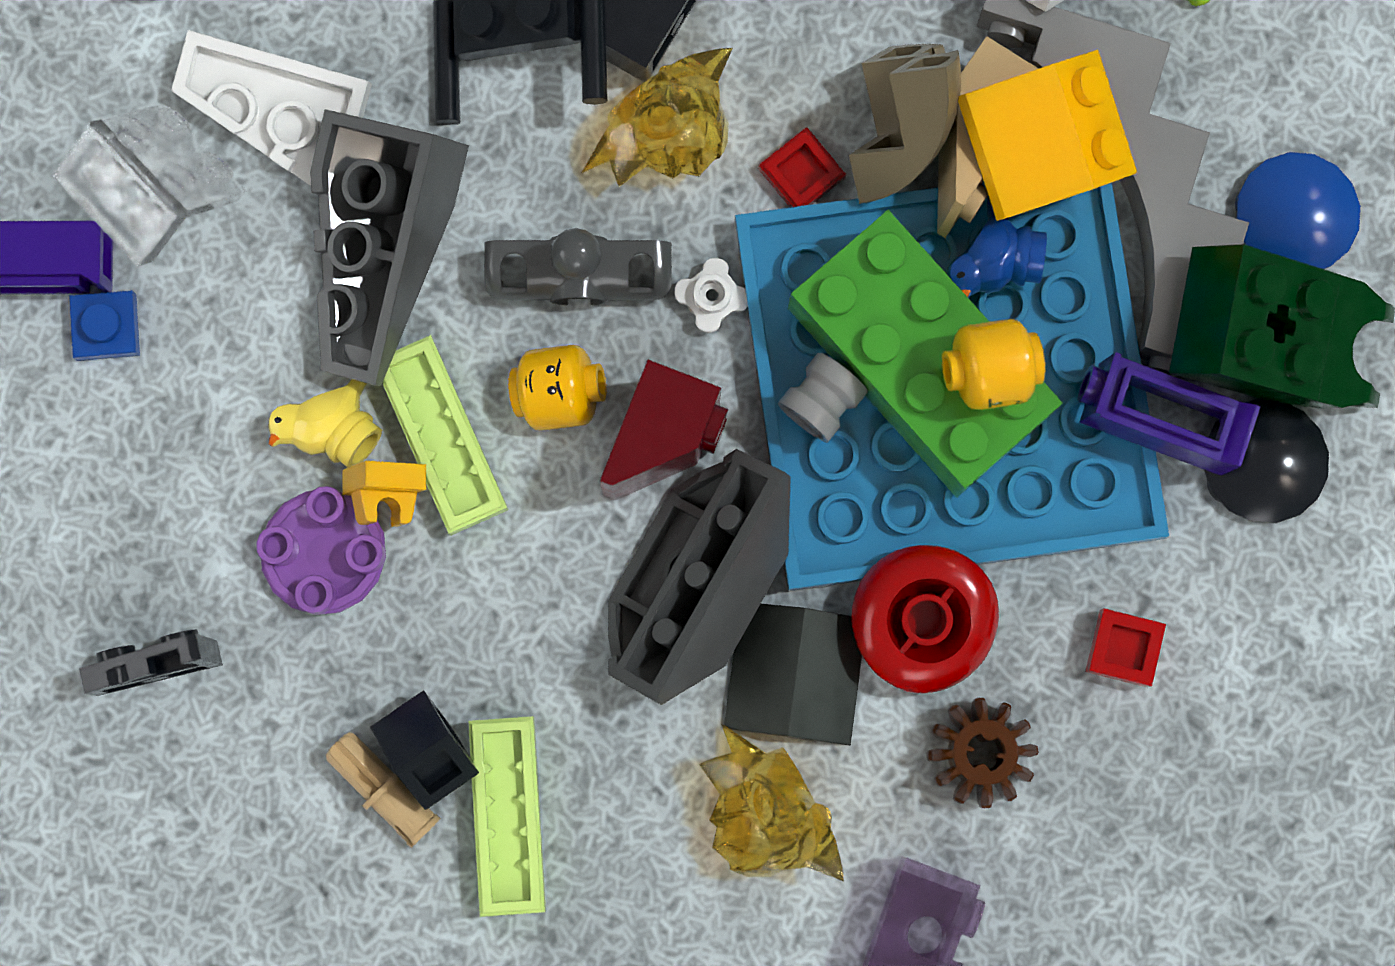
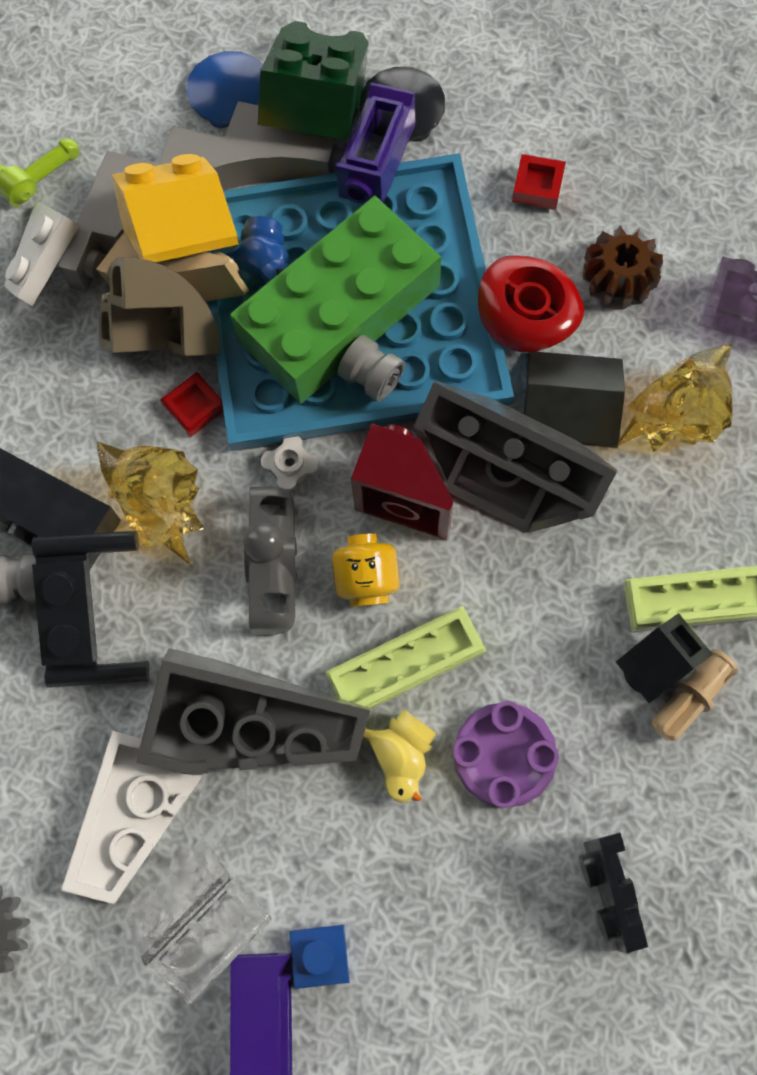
camera: 85 degrees left, 10 degrees down
(386, 482) = (452, 704): yellow tile -> none
(994, 364) = (351, 224): yellow head -> none

